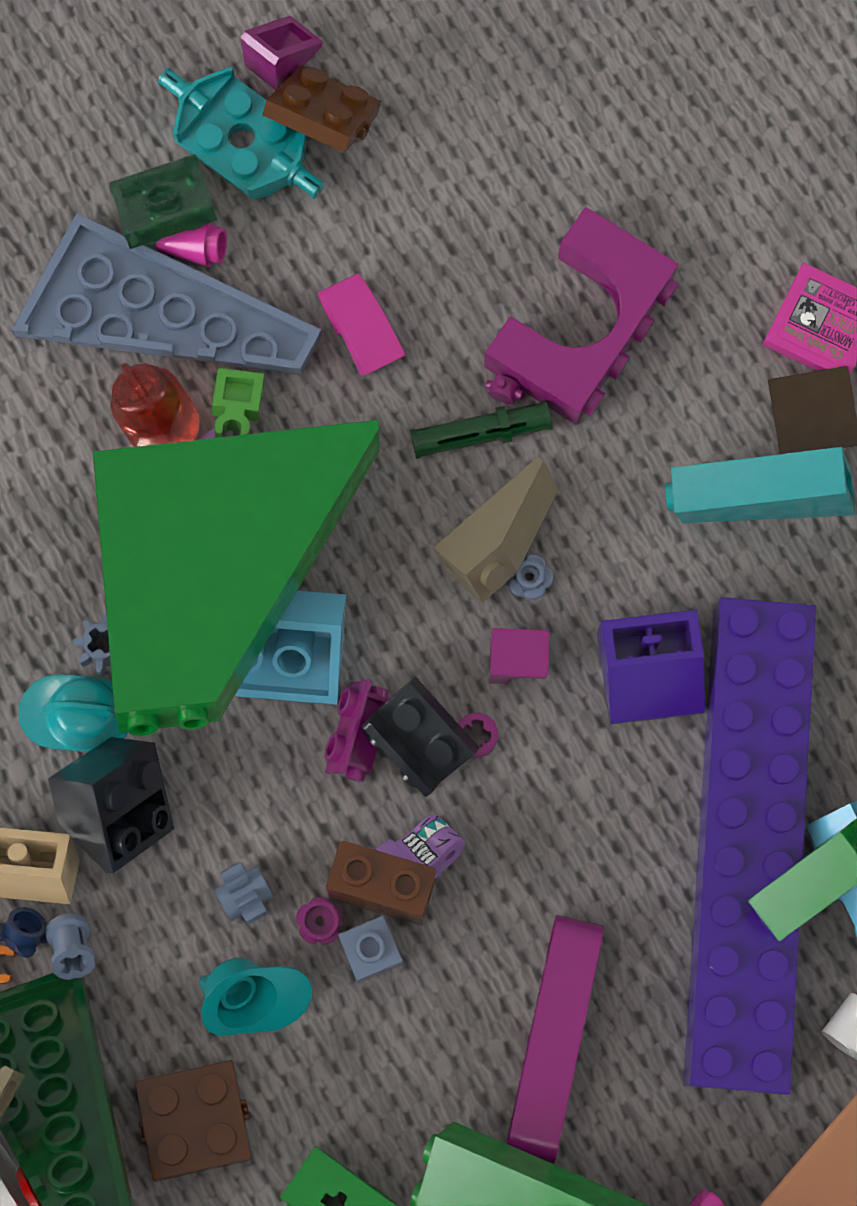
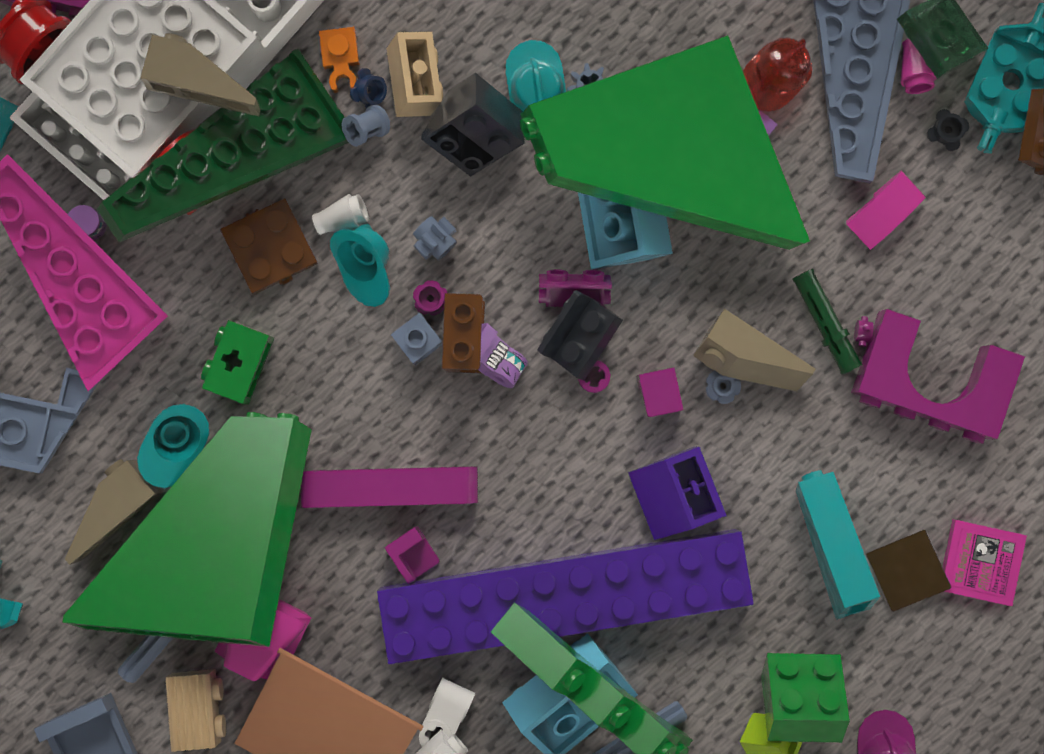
camera: 80 degrees right, 10 degrees up
(179, 1010) = (343, 214): none -> white cone
(236, 400) = (800, 132): bright green plate -> none
(278, 214) = (957, 125): none -> black plate
(649, 1030) = (412, 554): none -> magenta panel

